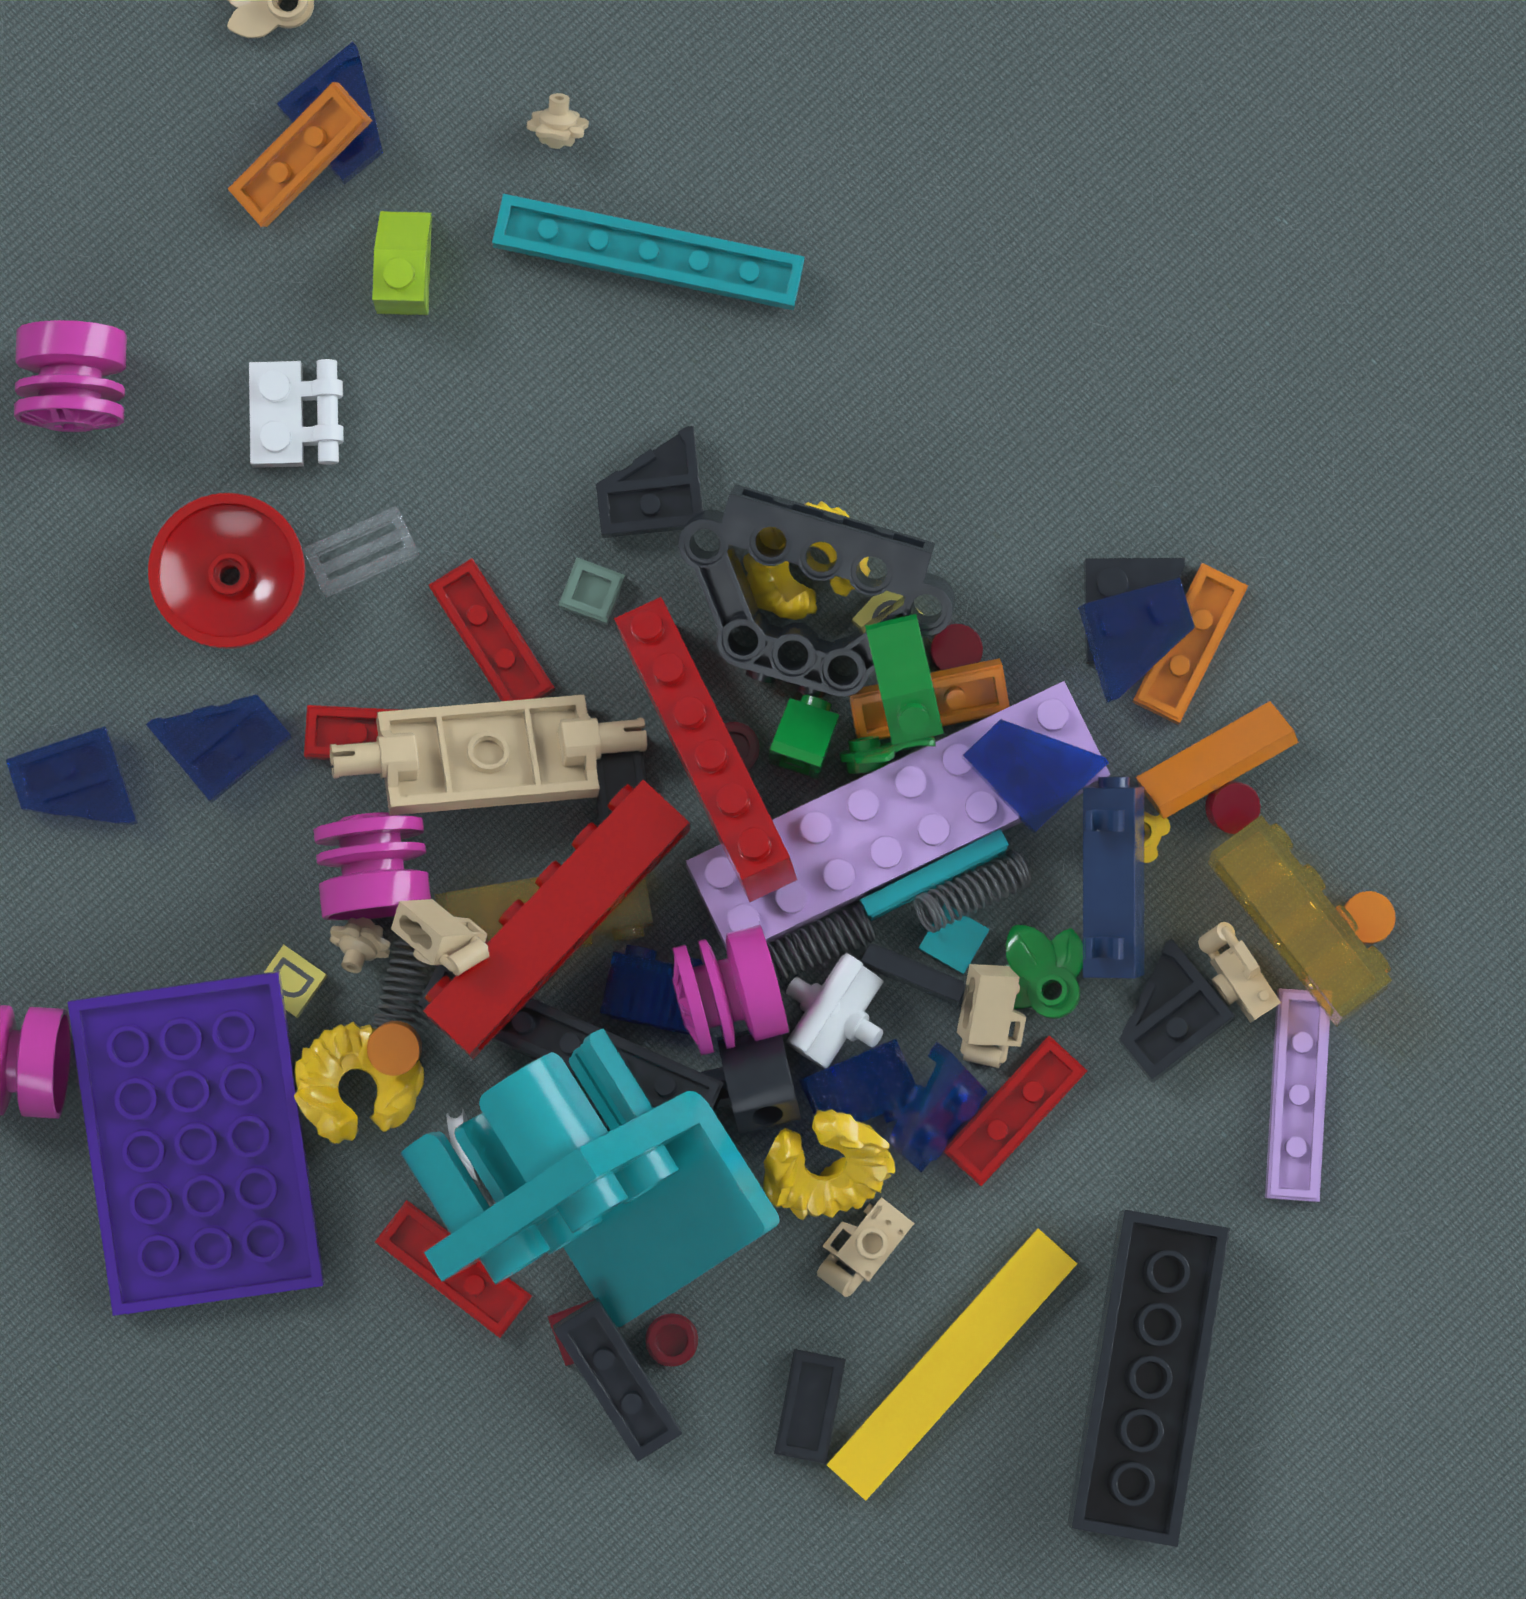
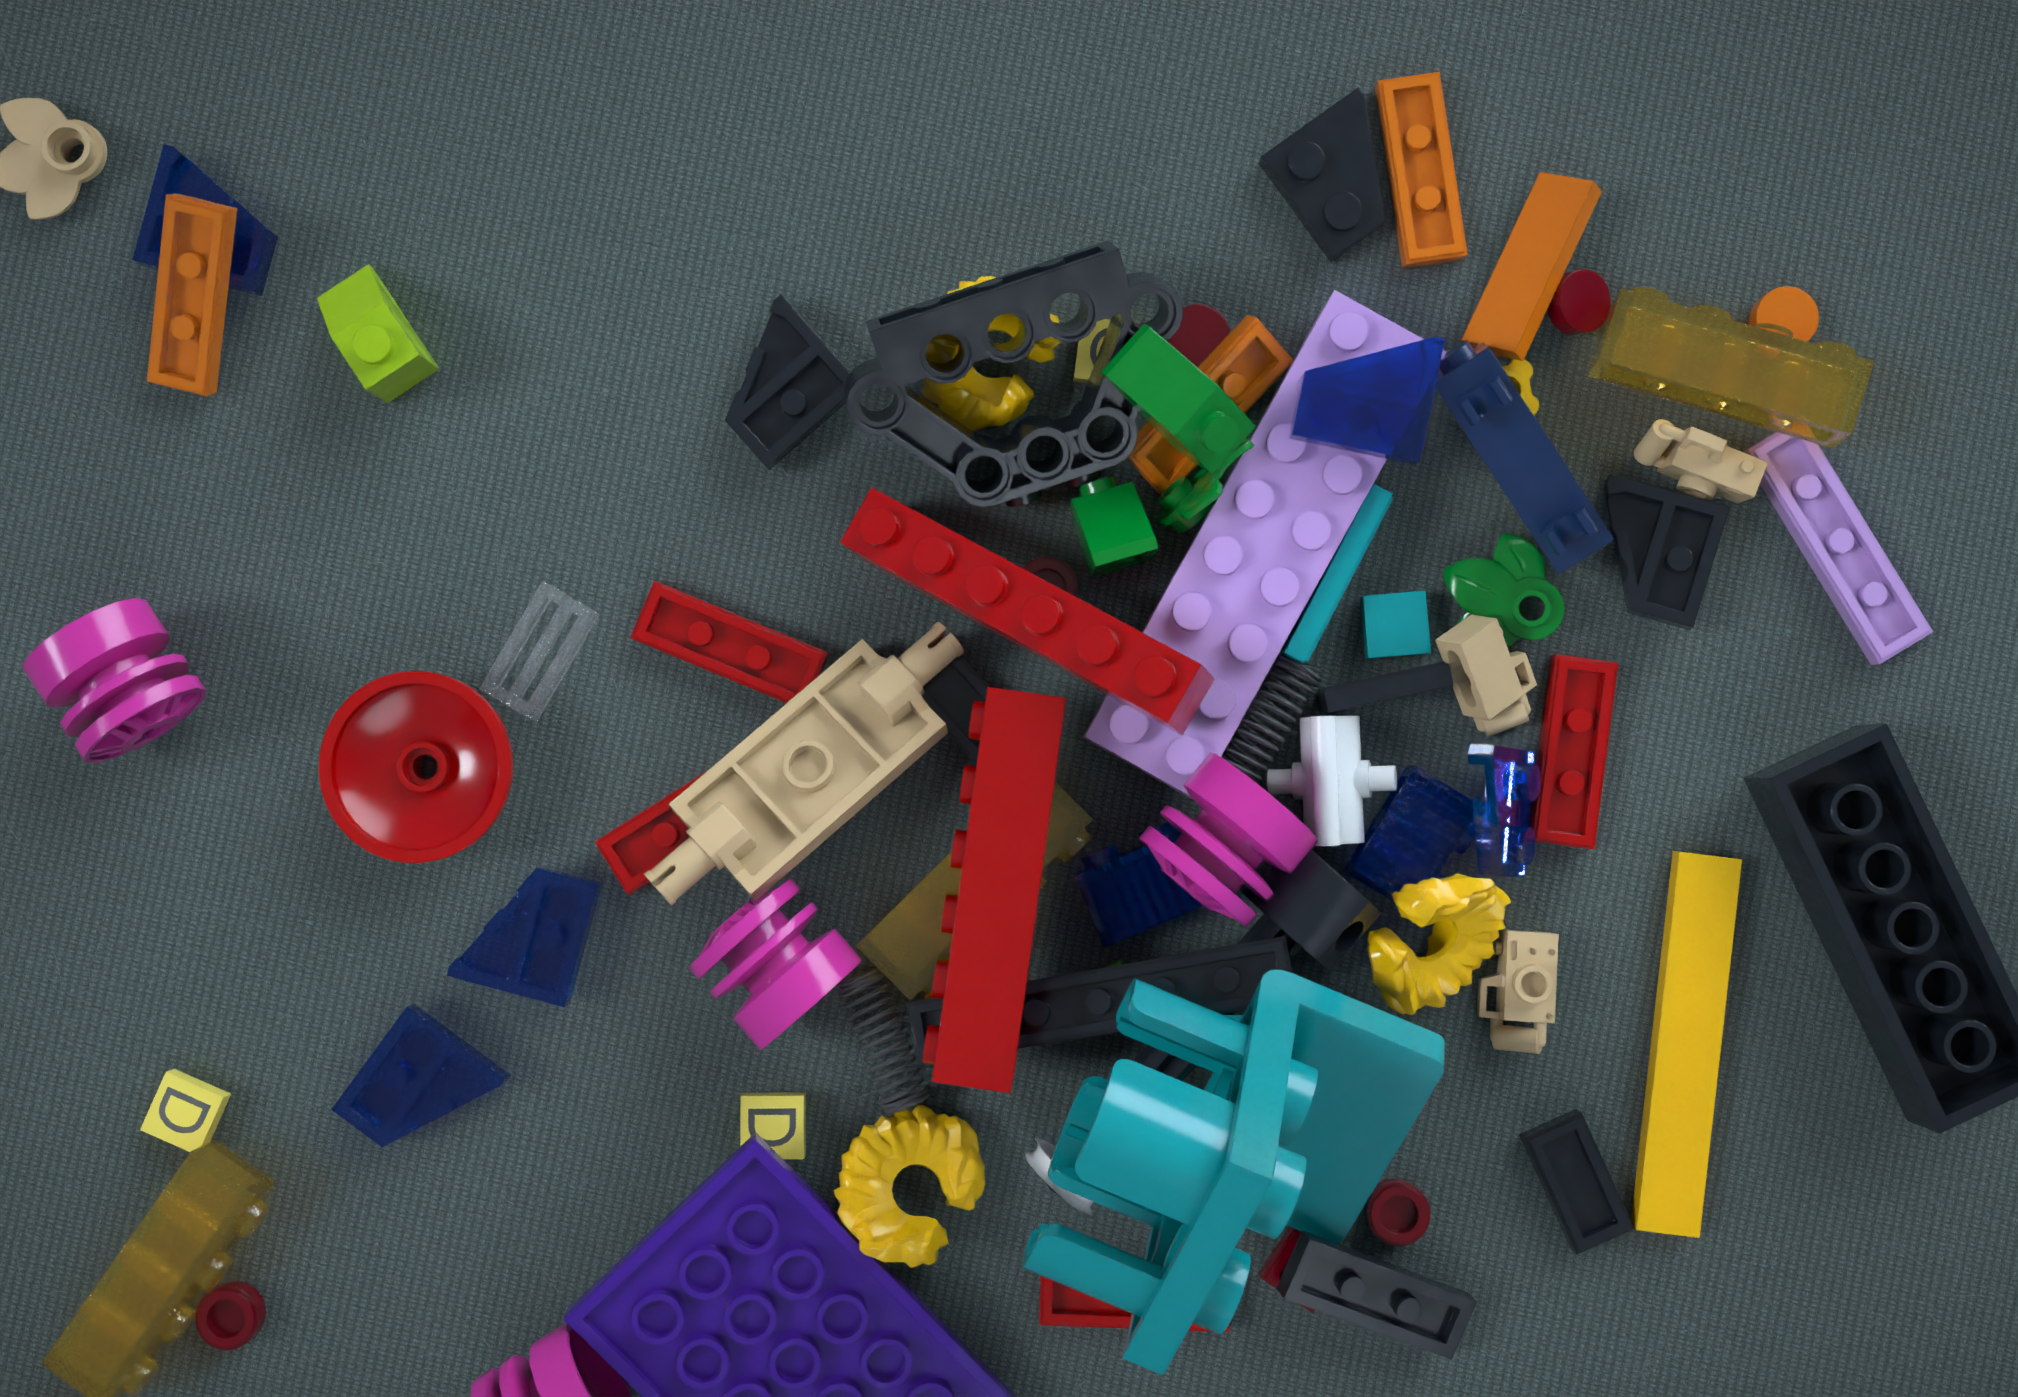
camera: 30 degrees left, 5 degrees up
(277, 413) = (358, 570): white plate -> none
(359, 942) = (814, 1042): tan plant -> none
(394, 1048) = (925, 1127): orange tile -> none
(440, 936) = (896, 993): tan piece -> none
(557, 124) = (430, 85): tan plant -> none
(592, 591) = (796, 530): sand green tile -> none
(648, 251) = (611, 151): teal plate -> none
(934, 905) = (1367, 610): dark grey piece -> none
(1134, 632) = (1366, 195): clear blue wing -> none

